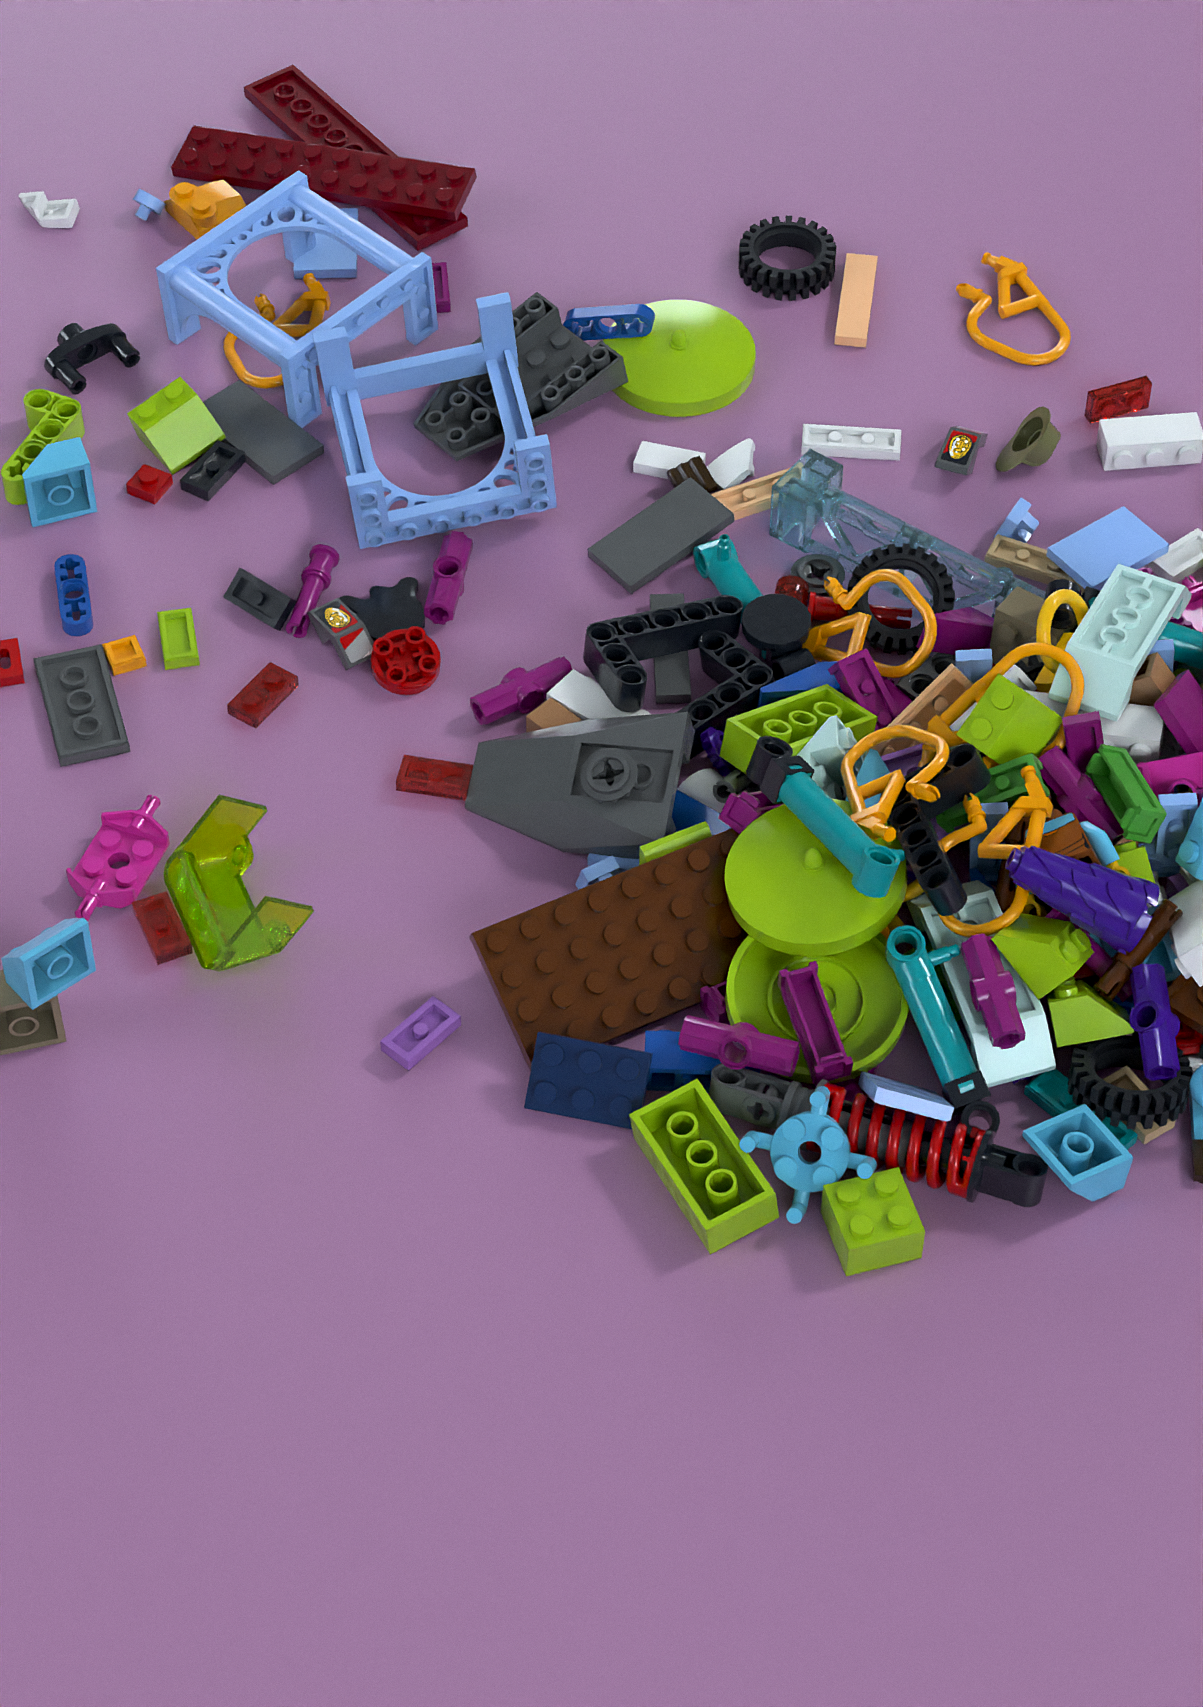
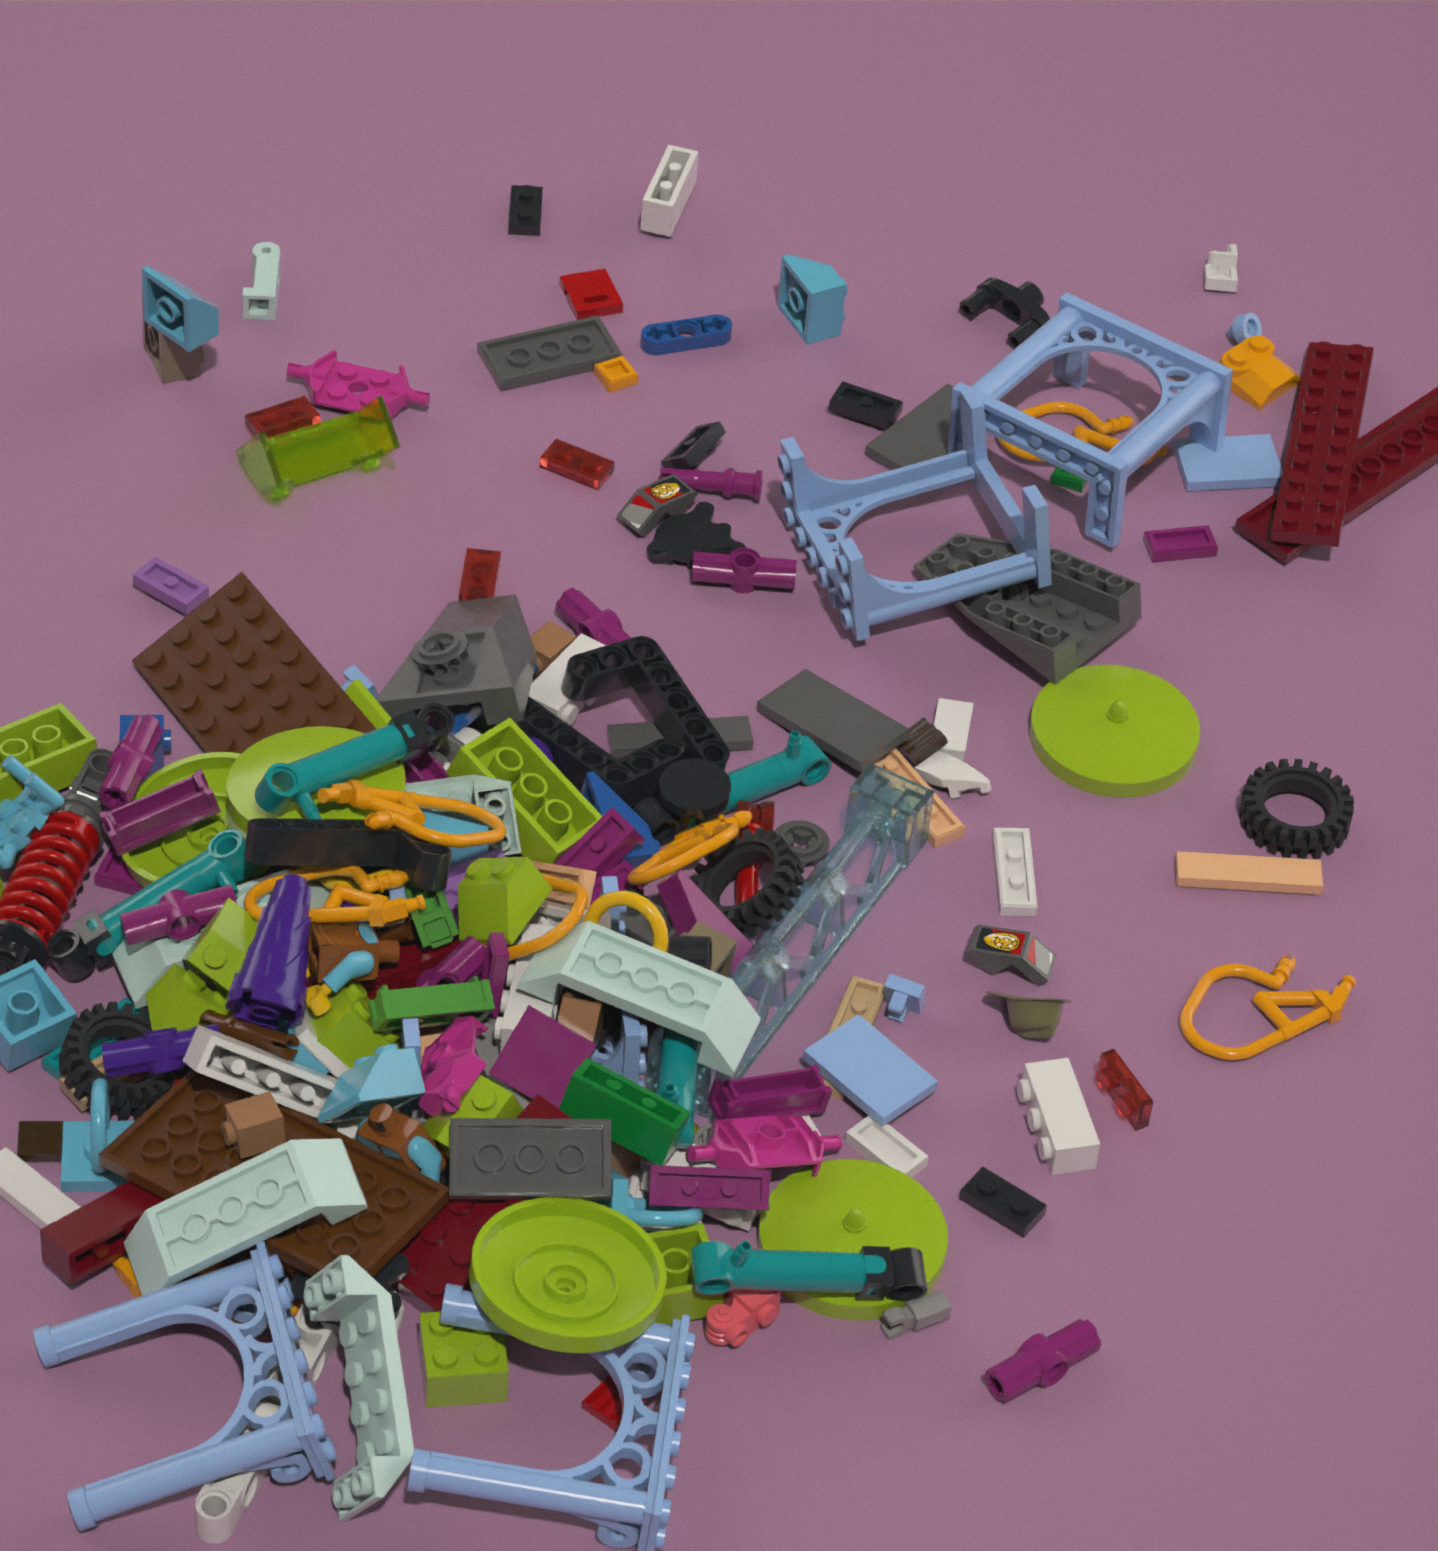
camera: 80 degrees right, 5 degrees down
(52, 420) = (888, 297): lime beam -> none
(149, 484) = (844, 368): red plate -> none
(175, 425) = (914, 368): lime slope -> none
(178, 638) = (642, 405): lime tile -> none
(405, 661) = (627, 548): red tile -> none
(587, 1079) = (111, 682): dark blue plate -> none
(623, 315) = (1131, 656): blue beam -> none
(905, 1096) = (75, 874): light blue tile -> none

